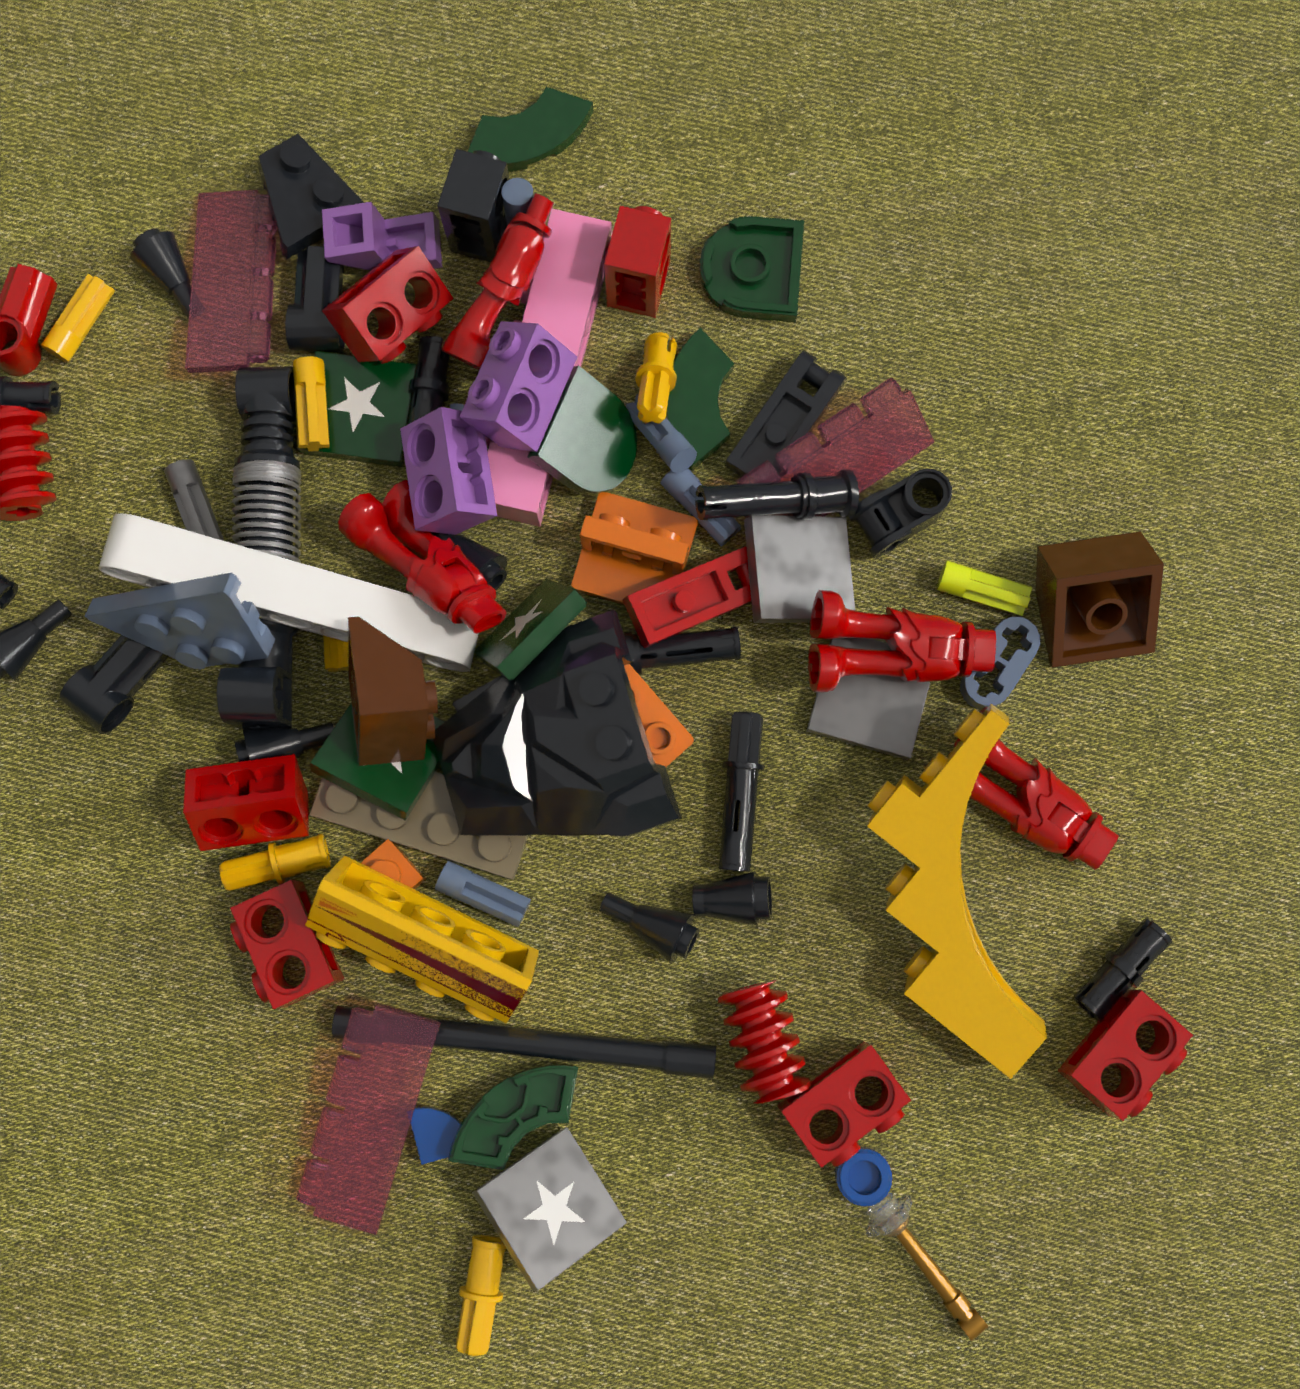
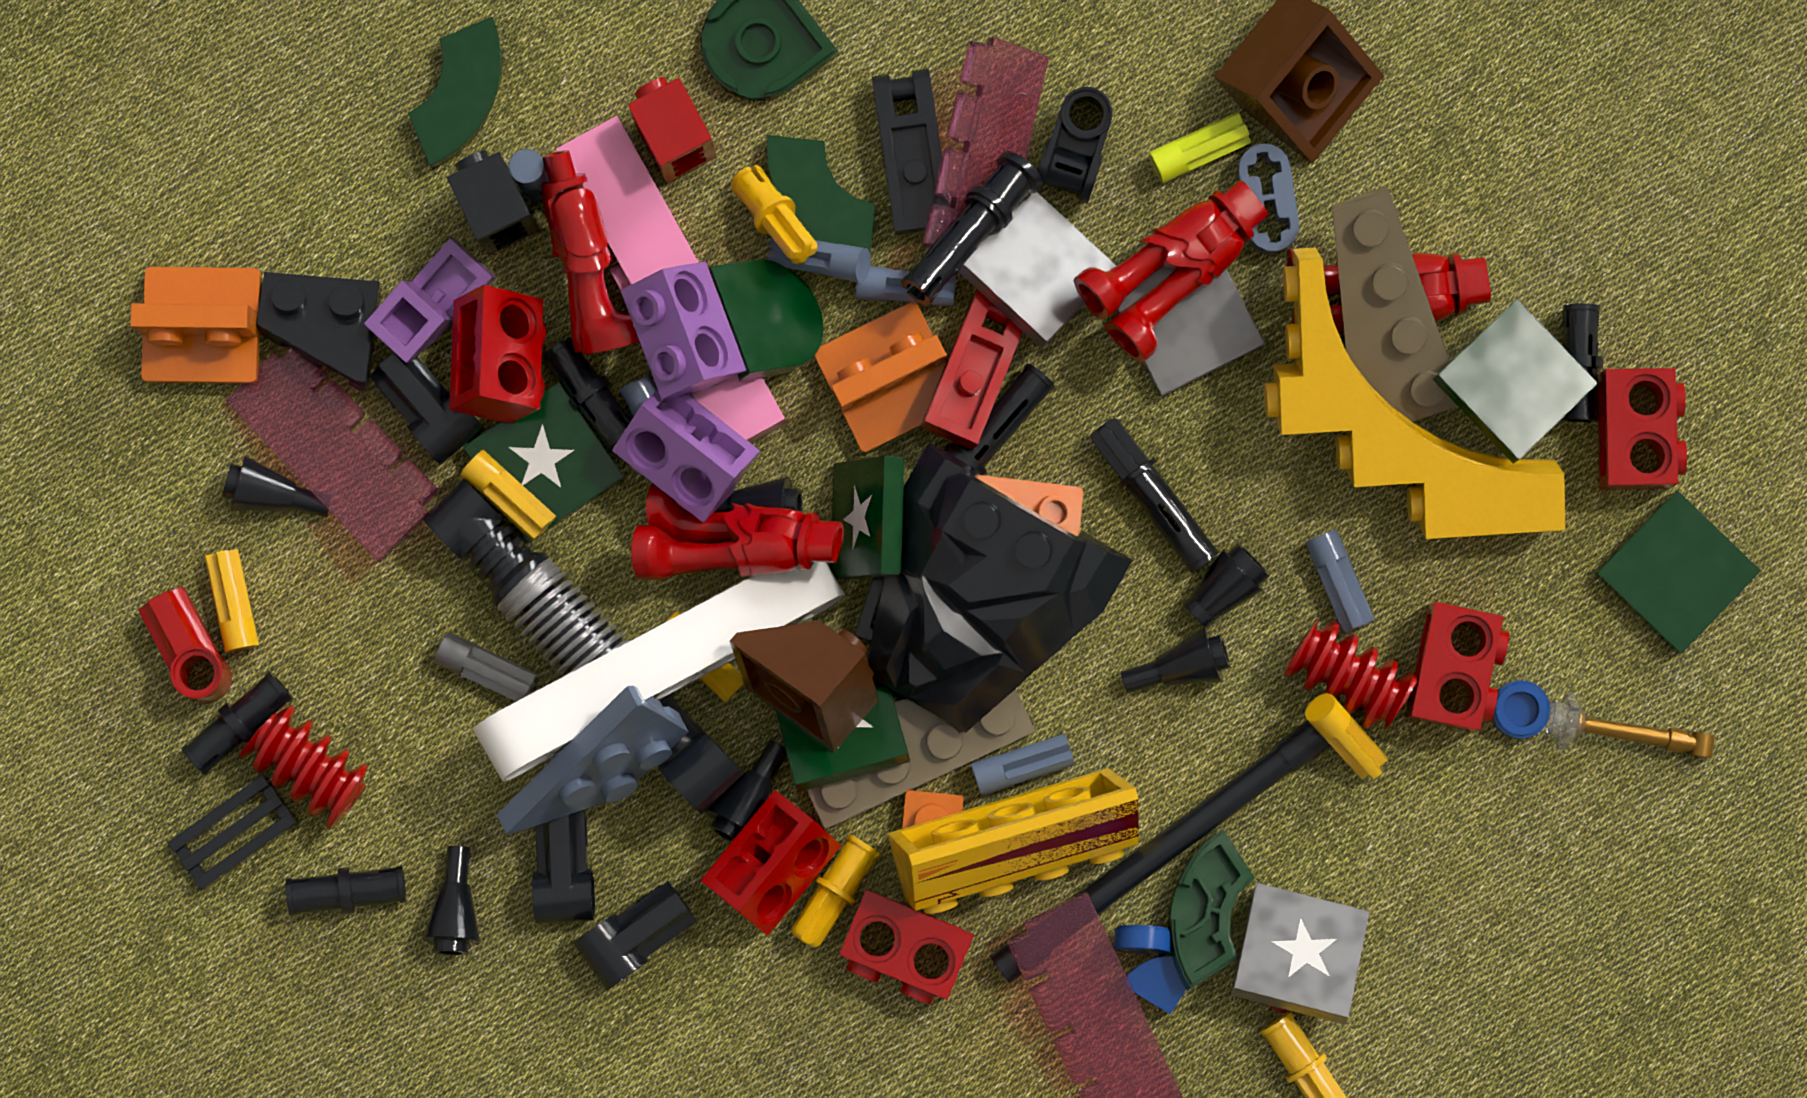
camera: 45 degrees left, 5 degrees up
(106, 767) = (625, 941): none -> black piece
(222, 127) = (199, 325): none -> orange bracket
(450, 1093) = (1142, 939): none -> blue tile
(721, 1081) = (1345, 736): none -> yellow piece
(816, 968) = (1339, 580): none -> sand blue piece
(1019, 809) = (1385, 307): none -> dark tan wing
(1063, 1182) = (1677, 572): none -> dark green tile
(1067, 940) = (1515, 381): none -> tile

